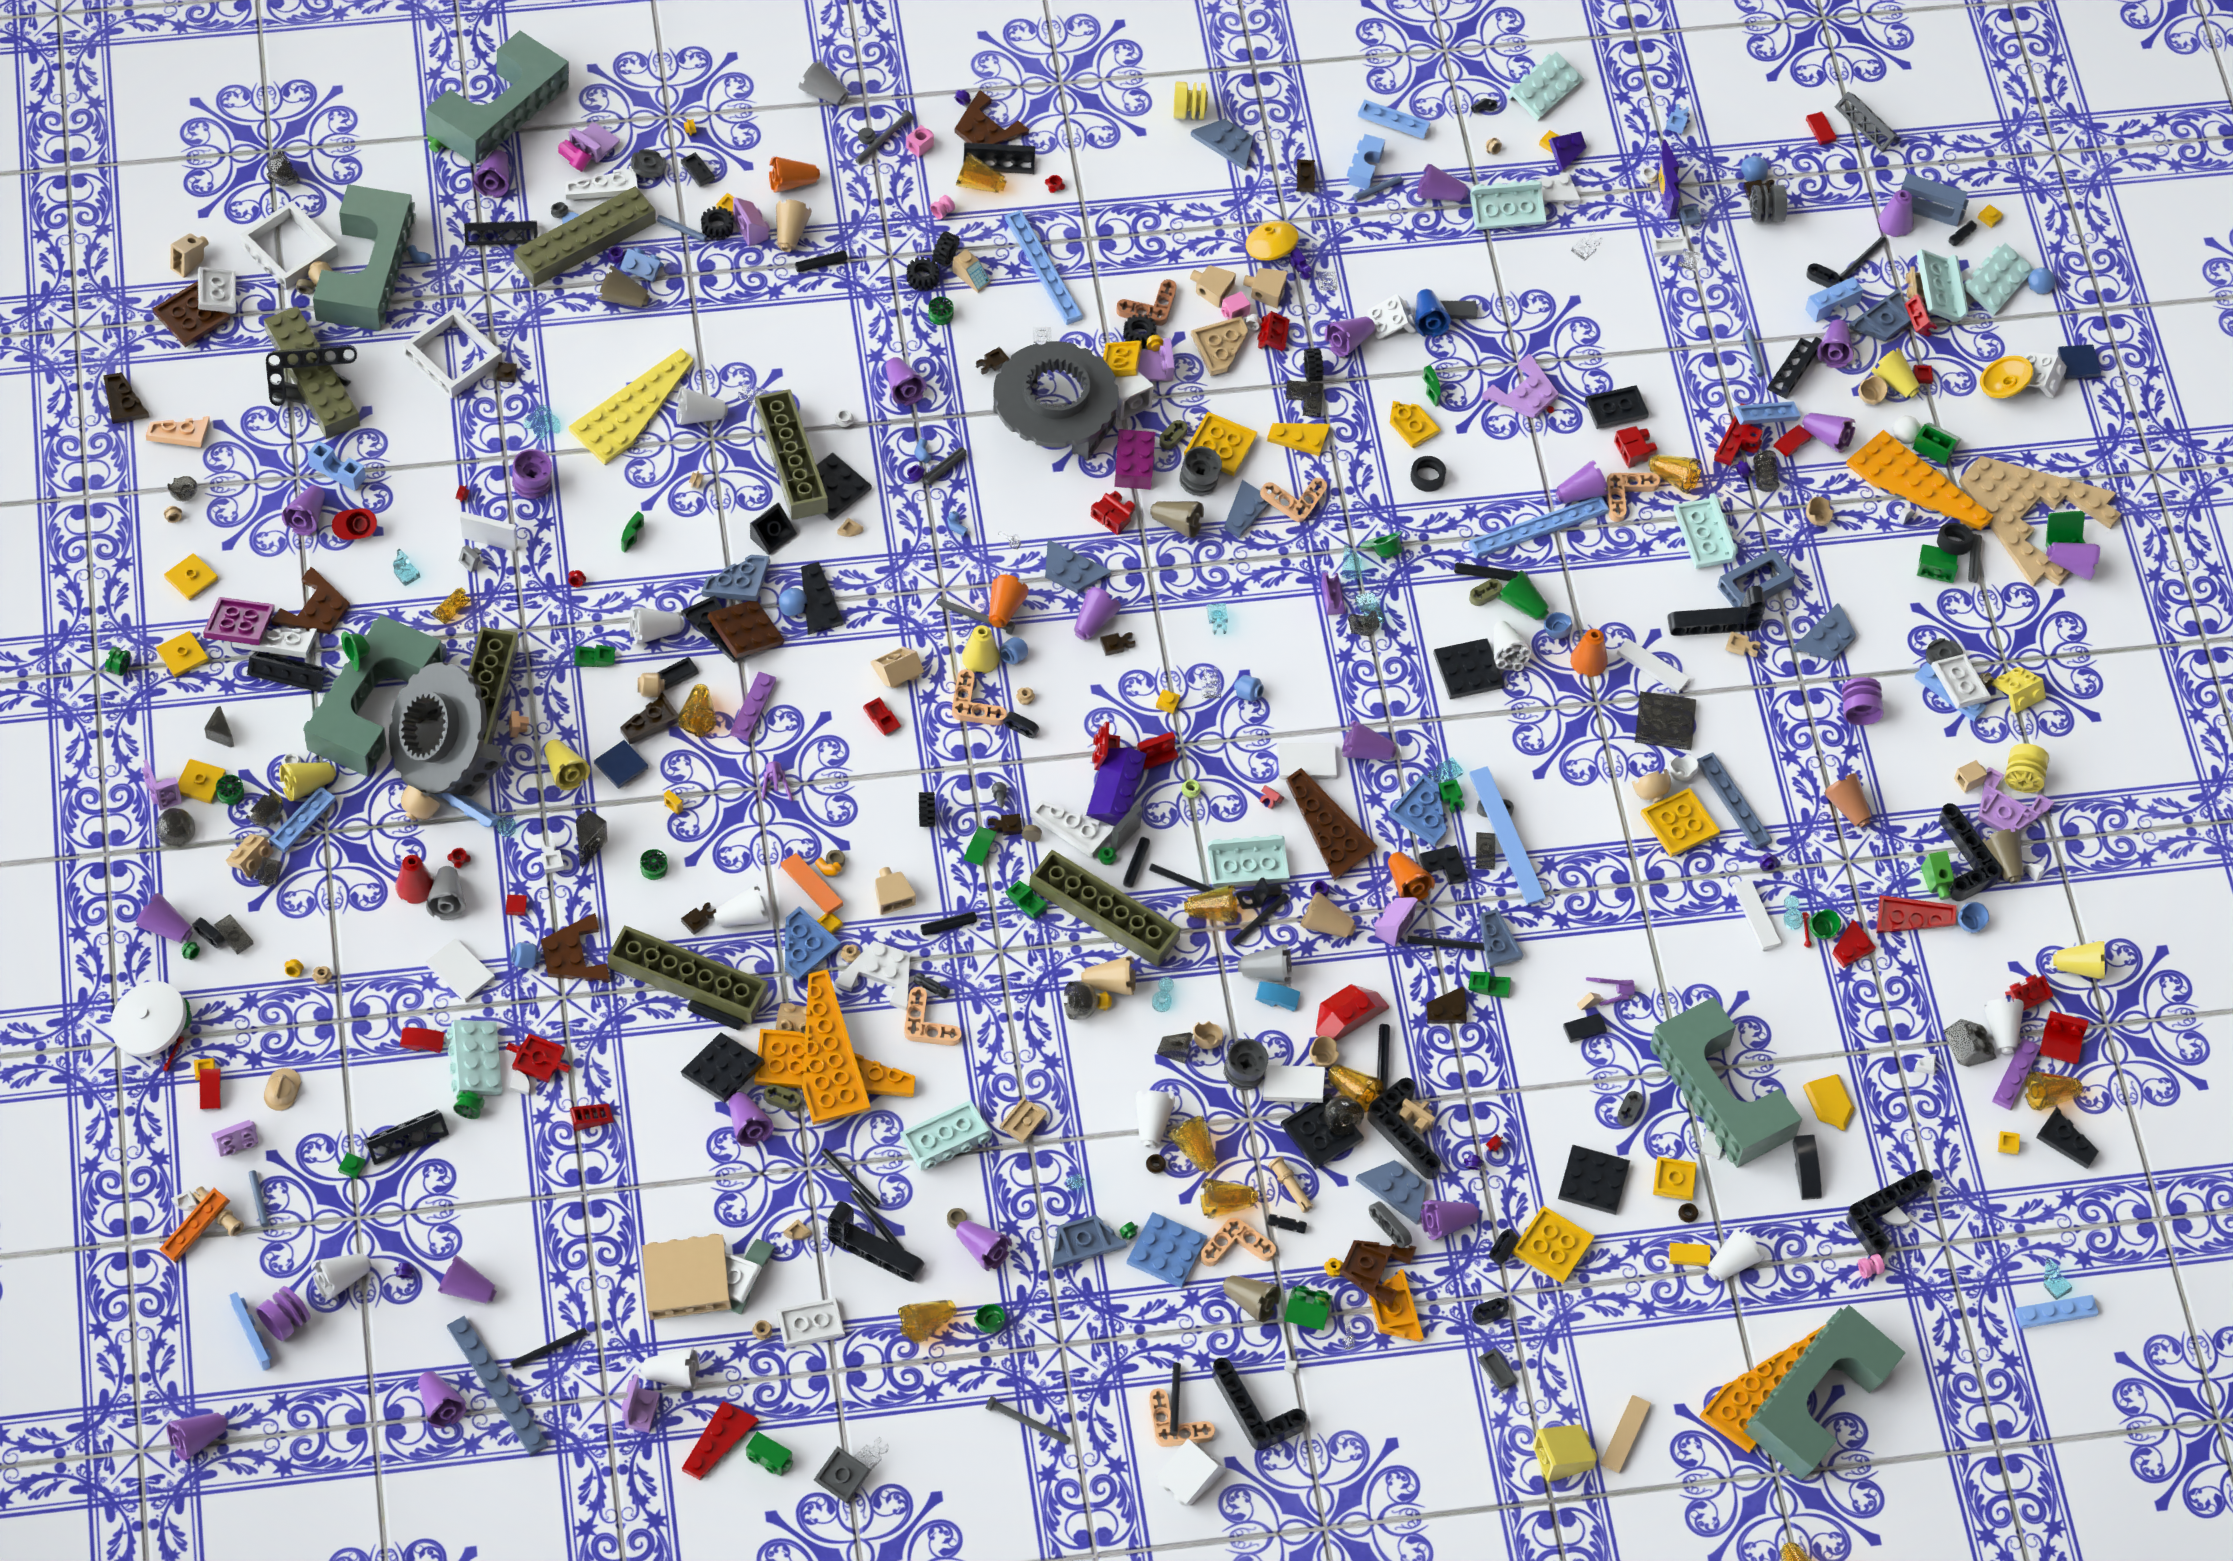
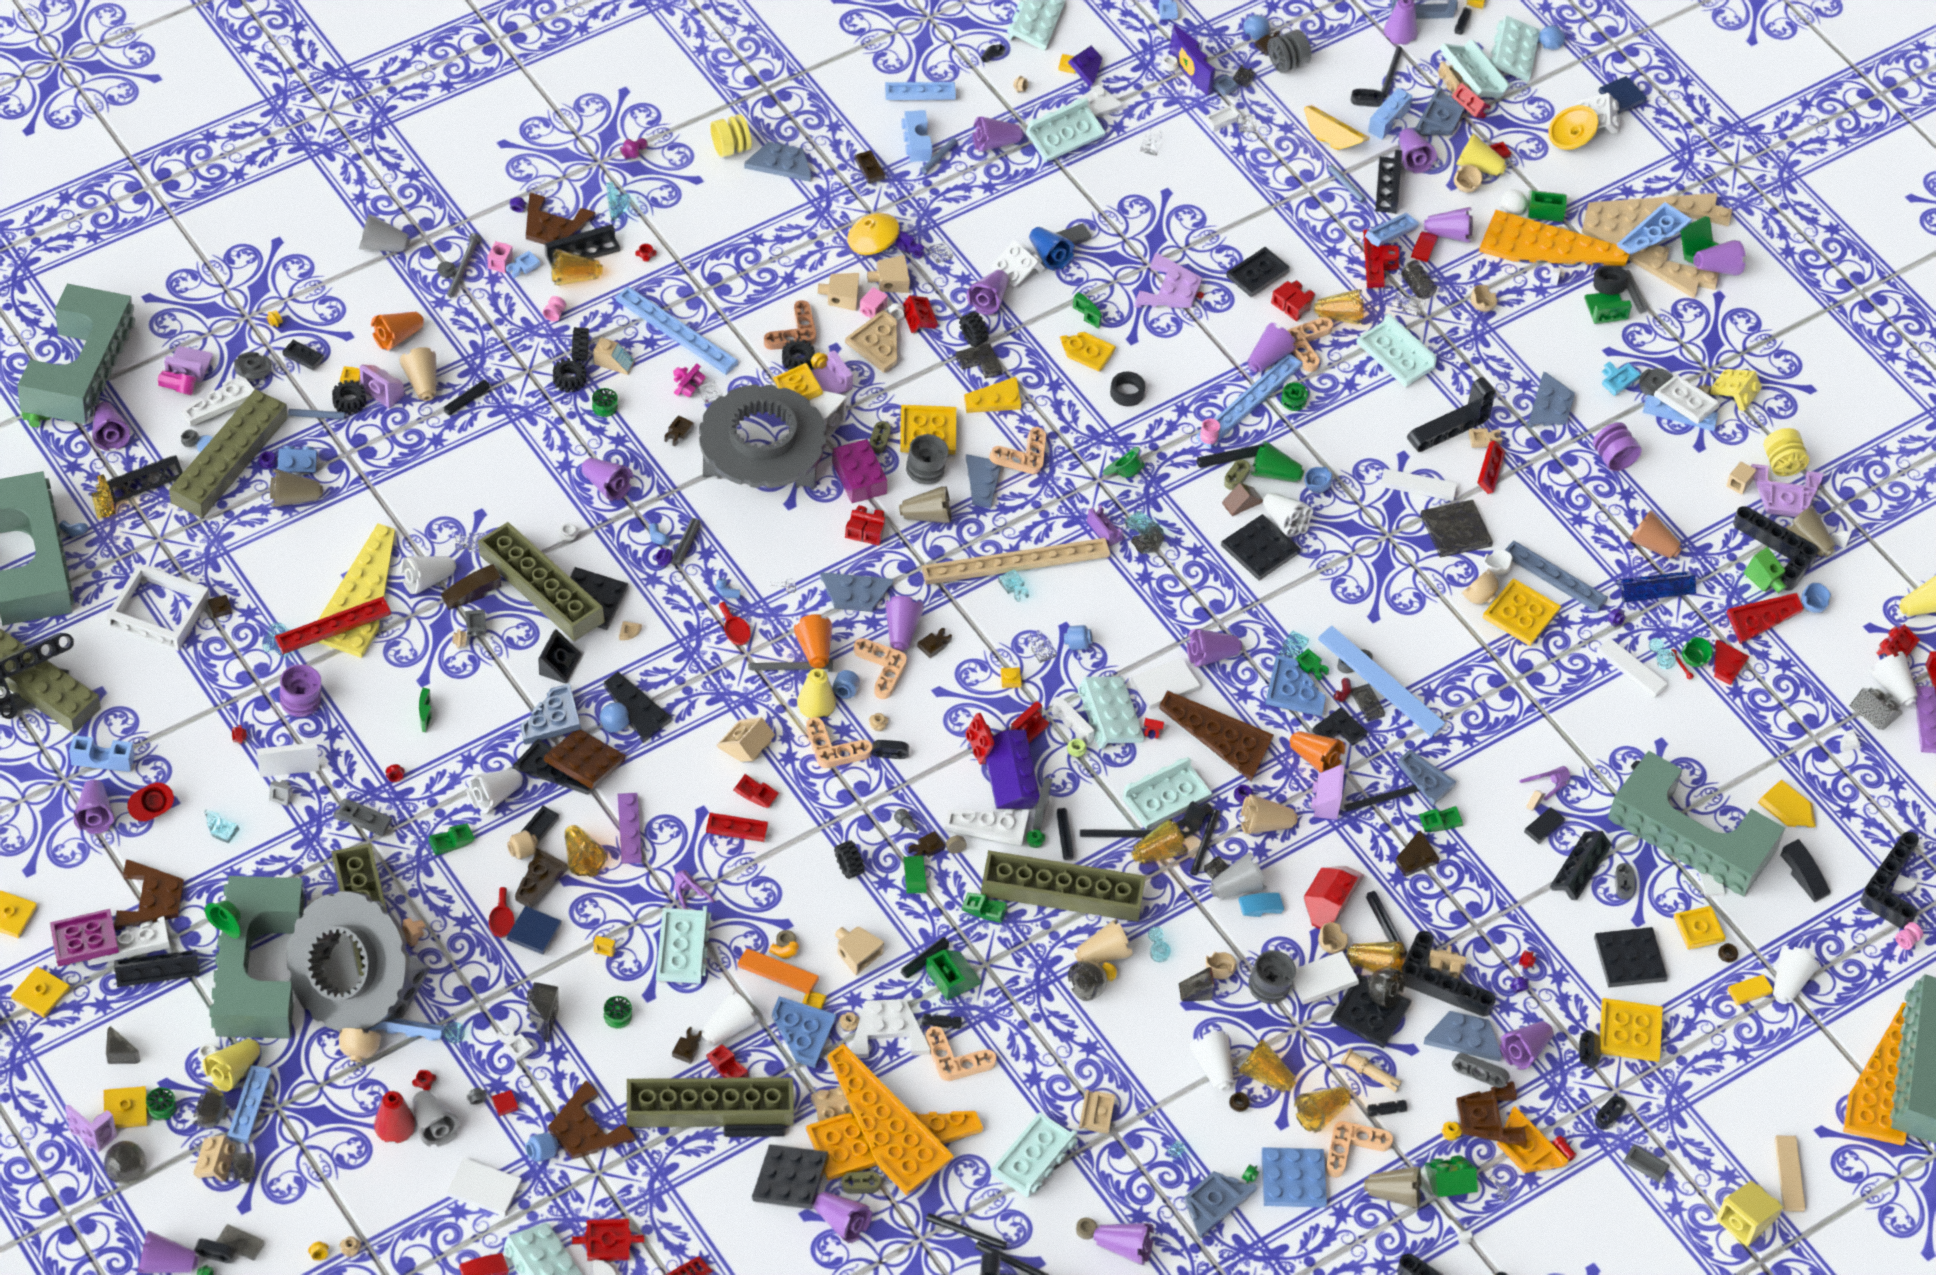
camera: 25 degrees left, 5 degrees down
(451, 605) = (285, 844): clear yellow hinge -> none
(454, 239) = (103, 499): none -> clear yellow bracket
(494, 889) = (477, 1096): none -> dark grey plate
(529, 607) = (363, 817): none -> dark grey plate
(565, 765) = (482, 950): light yellow cone -> none
(590, 426) = (332, 625): none -> red plate
(600, 741) = (501, 917): none -> red piece
(717, 470) = (475, 623): none -> dark grey bracket
(723, 947) = (724, 1062): none -> red slope
(731, 437) = (472, 587): none -> dark brown slope
(741, 828) = (683, 945): none -> light aqua bracket
(846, 742) = (737, 827): none -> red plate
(939, 155) = (525, 263): none -> light blue plate
(944, 561) = (735, 627): none -> red piece
(963, 946) = (951, 973): none -> green slope
(1020, 321) = (693, 375): none -> dark pink hips
(1052, 127) = (616, 203): none -> clear light blue slope
(1063, 643) = (887, 661): none -> light nougat beam
(1094, 81) = (631, 148): none -> magenta animal
(1199, 760) = (1073, 720): none -> white plate
(1232, 596) = (1015, 560): none -> tan plate
(1240, 766) = (1110, 710): none -> light aqua bracket
(1255, 944) = (1215, 867): none -> clear smoke tile
(1351, 564) = (1105, 492): clear light blue slope -> none
(1426, 1320) = (1561, 1144): none -> red pin
(1471, 830) = (1342, 695): none -> dark red arm
(1476, 617) = (1241, 499): none -> slope
(1479, 542) = (1210, 431): none -> bright pink wheel
(1582, 537) = (1294, 395): none -> green wheel
(1590, 654) = (1361, 493): orange cone -> none
(1598, 1077) = (1585, 864): none -> black fence
(1713, 213) = (1244, 76): none -> clear smoke tile
(1731, 675) = (1491, 467): none -> red plate
(1743, 469) = (1397, 285): dark purple plate -> none
(1746, 492) = (1411, 304): none -> clear plate
(1767, 294) = (1332, 130): none -> yellow wedge
(1770, 587) = (1456, 398): sand blue piece -> none
(1826, 848) = (1657, 586): none -> clear blue fence
(1908, 637) = (1619, 378): none -> medium azure plate
(2030, 503) = (1656, 227): none -> light blue wedge

